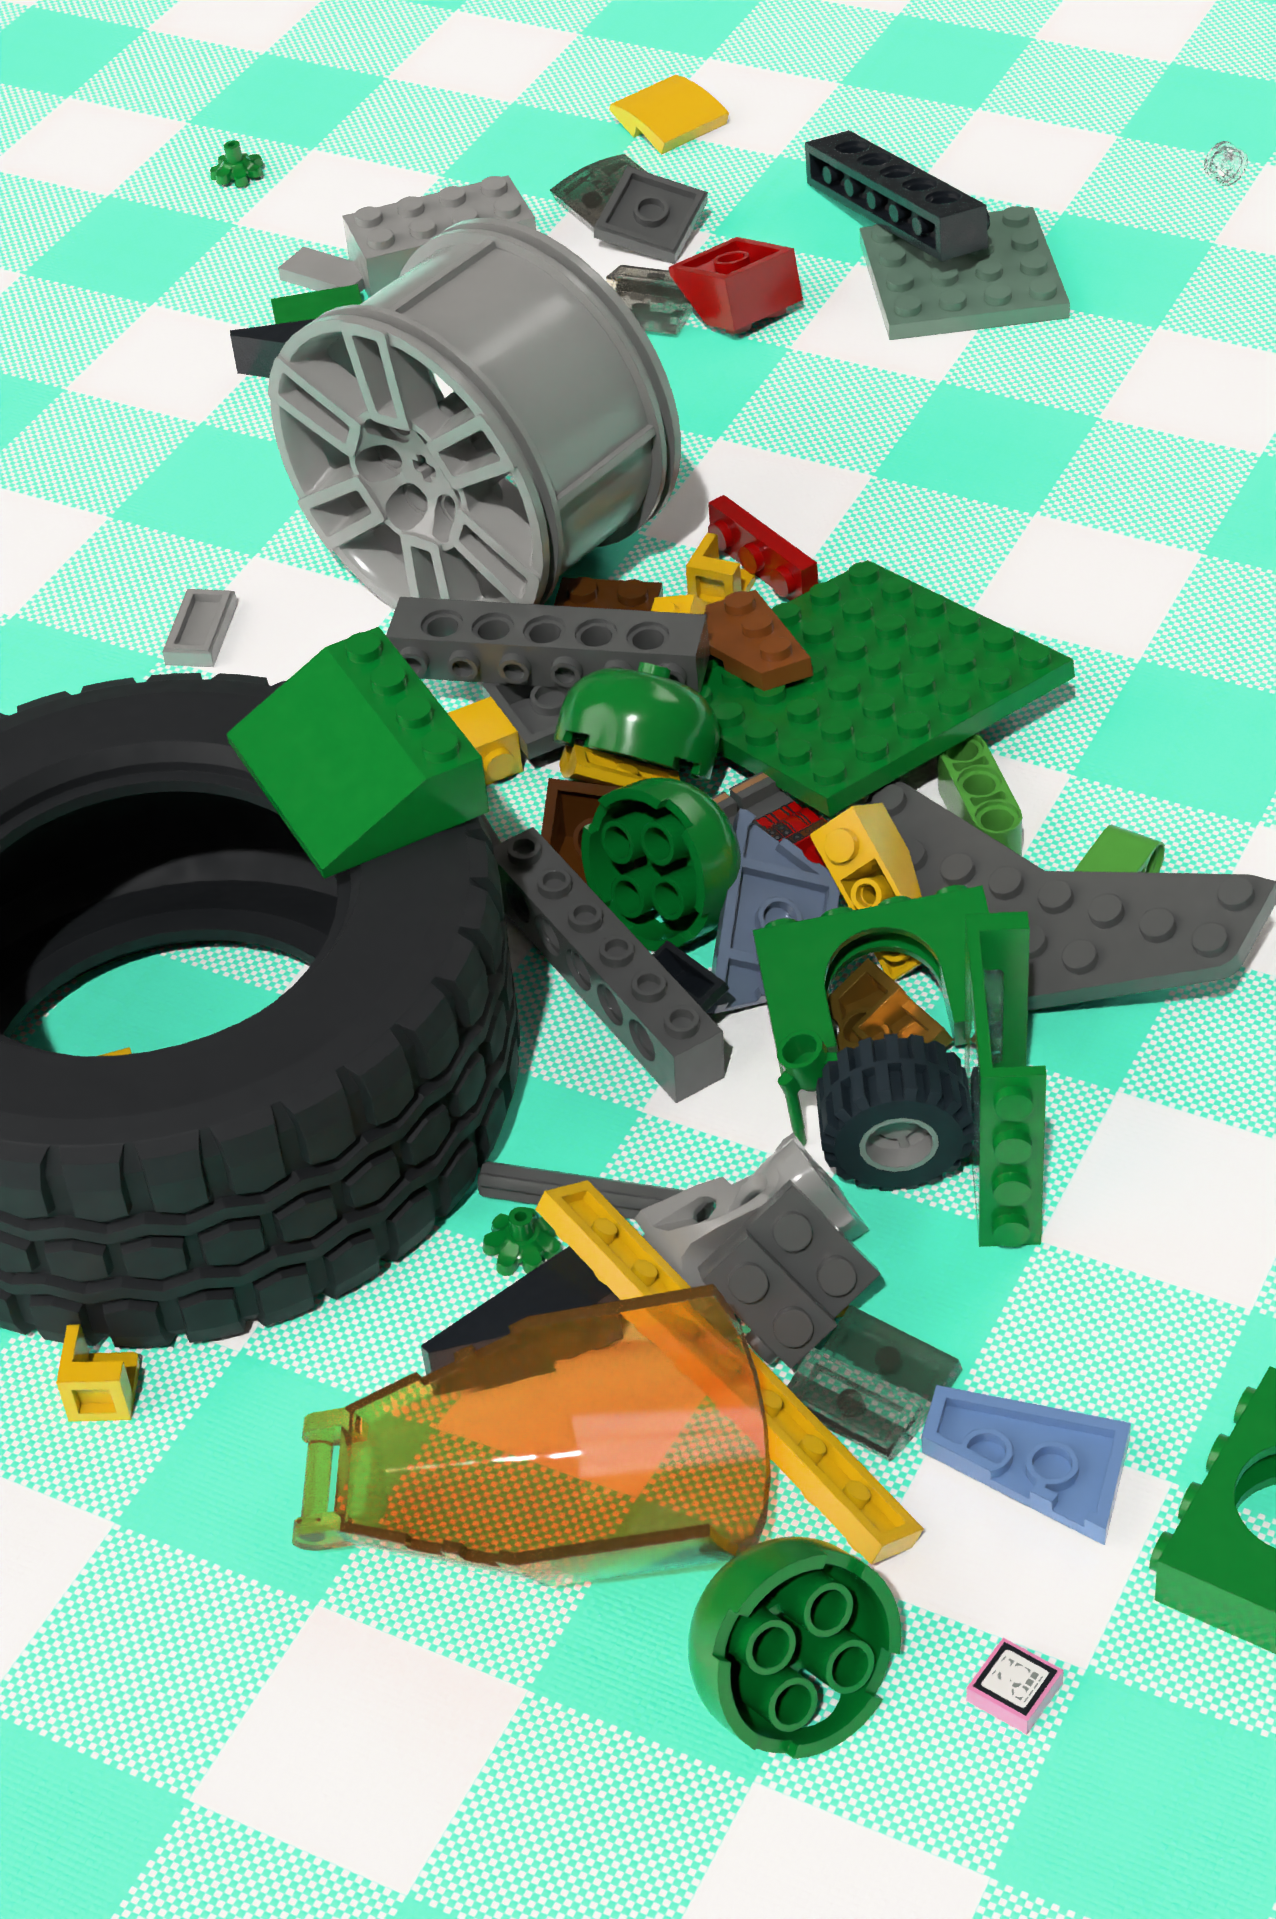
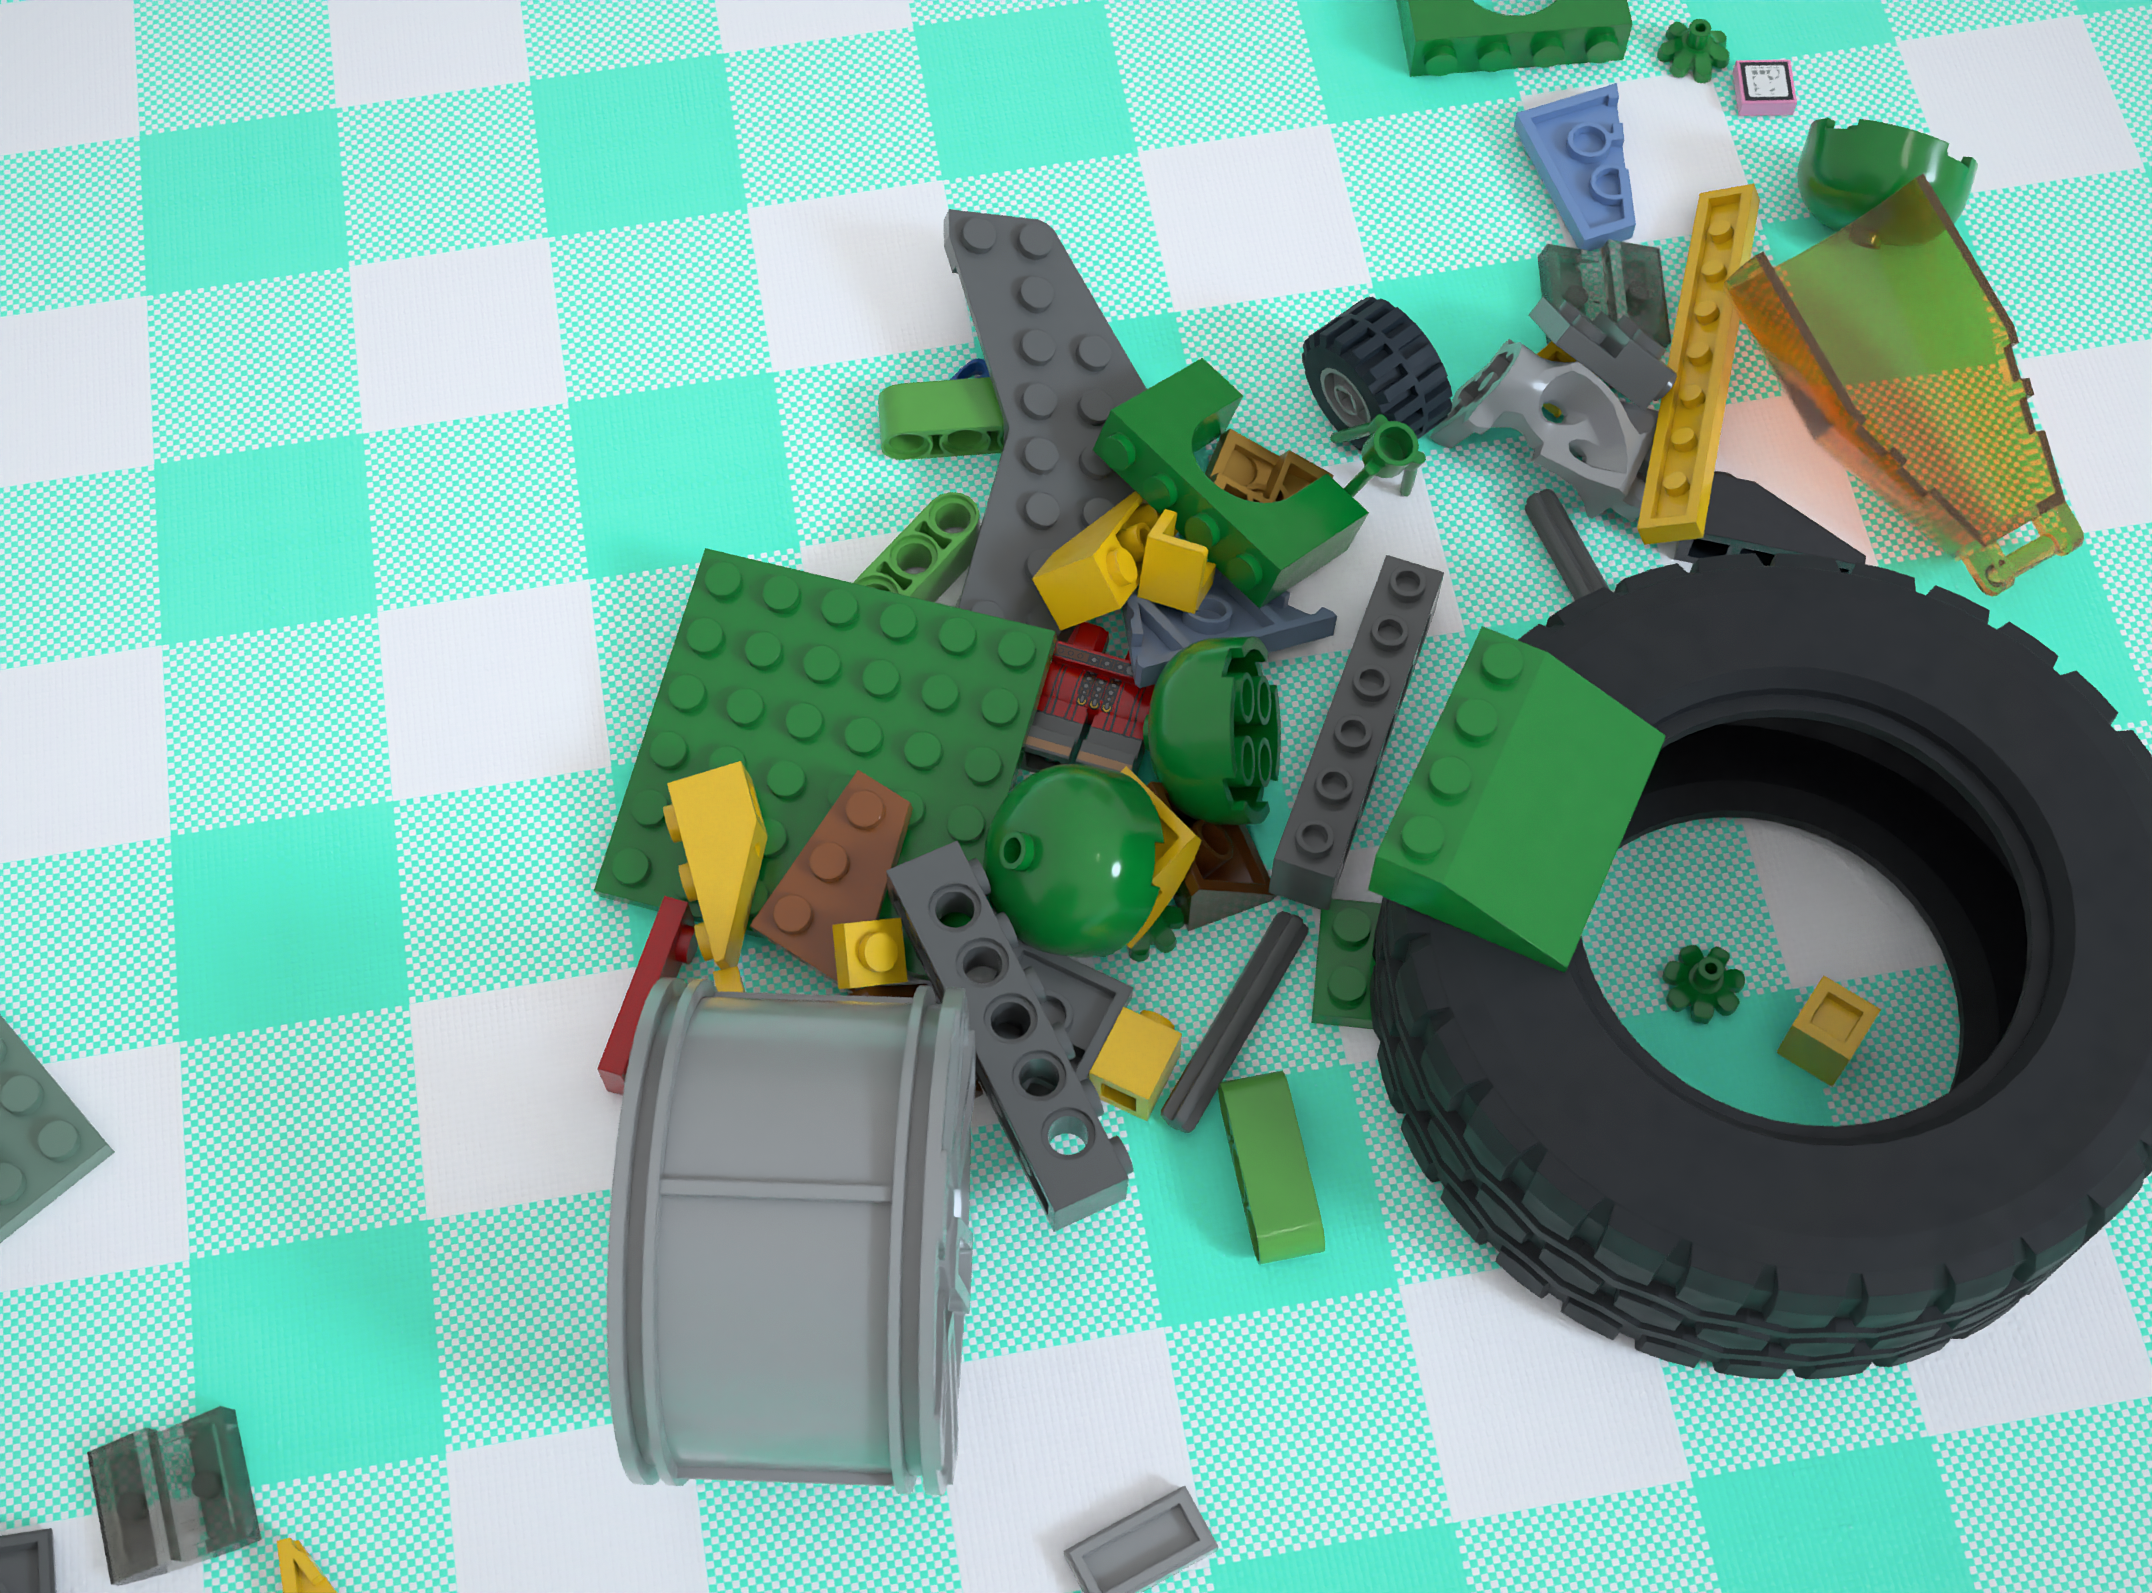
camera: 130 degrees left, 20 degrees up
(691, 975) = (1330, 642): black piece -> none
(739, 283) = (111, 1368): red slope -> none
(814, 584) = (724, 848): none -> yellow slope
(826, 887) = (1174, 569): none -> yellow panel
(1004, 1092) = (1276, 305): green panel -> none
(1116, 1660) = (1694, 49): none -> green plant

